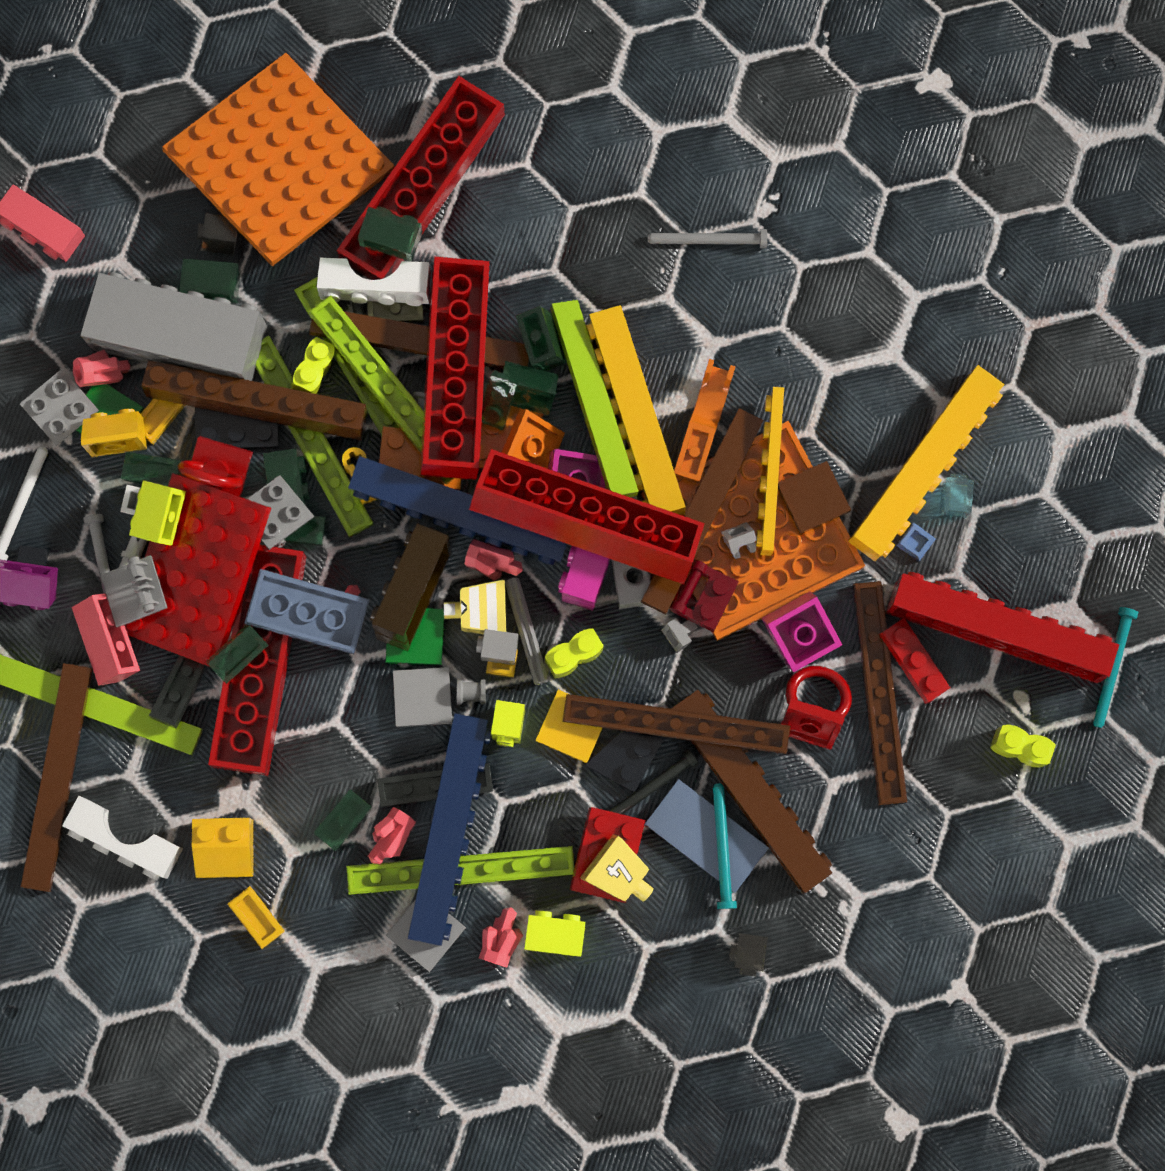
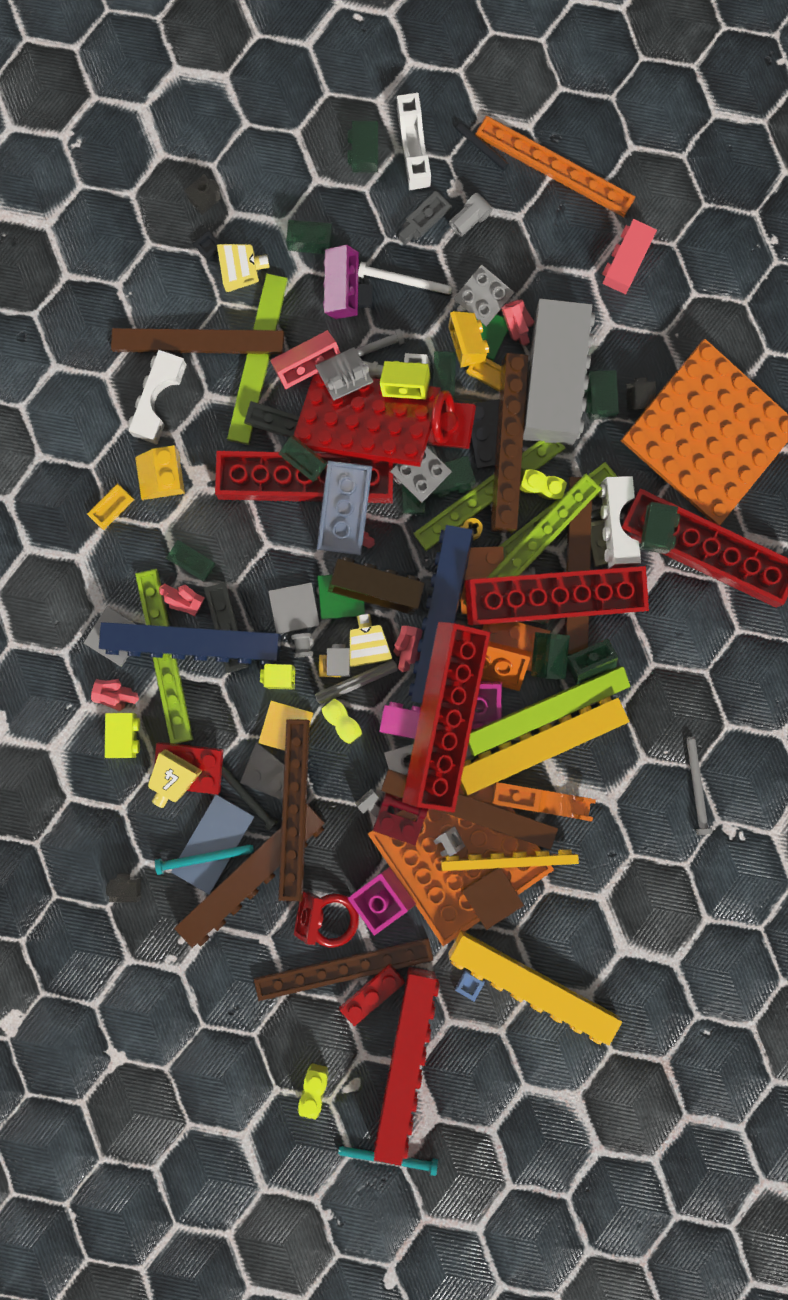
camera: 90 degrees right, 5 degrees up
(498, 399) = (535, 633): plate -> none
(956, 496) = (511, 1015): clear light blue brick -> none

